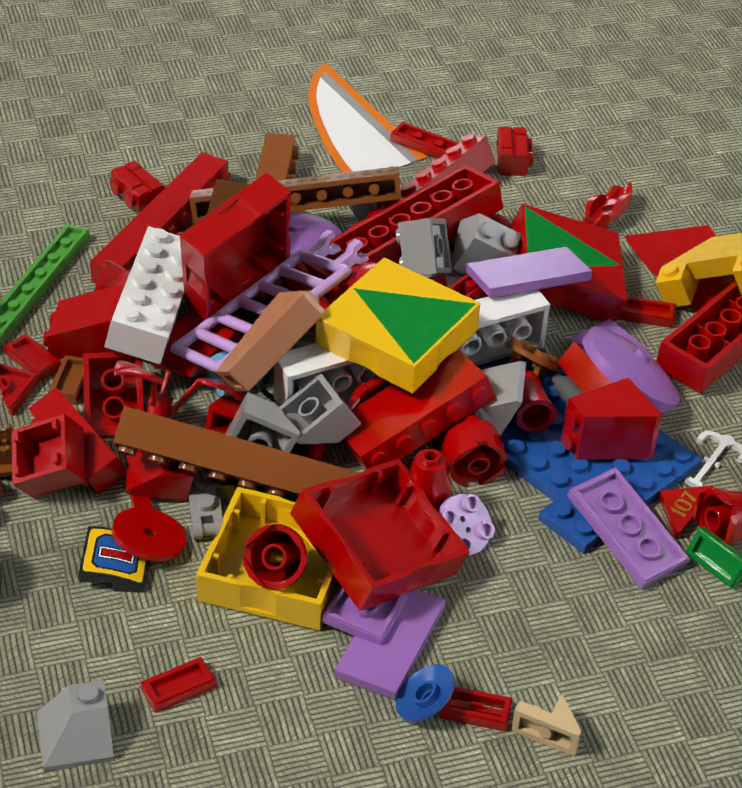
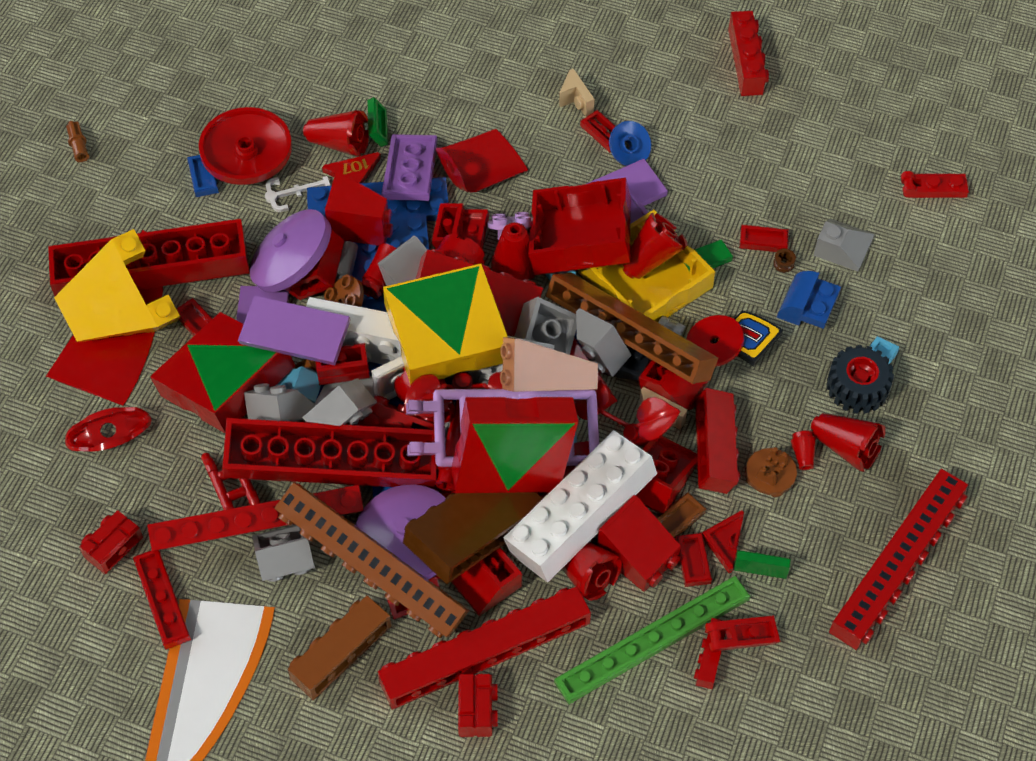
camera: 140 degrees left, 15 degrees up
(48, 456) = (752, 419): red container -> none
(72, 628) = (809, 300): none -> blue brick
(134, 660) = (786, 254): none -> reddish brown bush
(227, 628) = (714, 254): none -> green tile
(510, 493) = (455, 219): none -> red brick
(564, 591) = (480, 161): none -> red piece

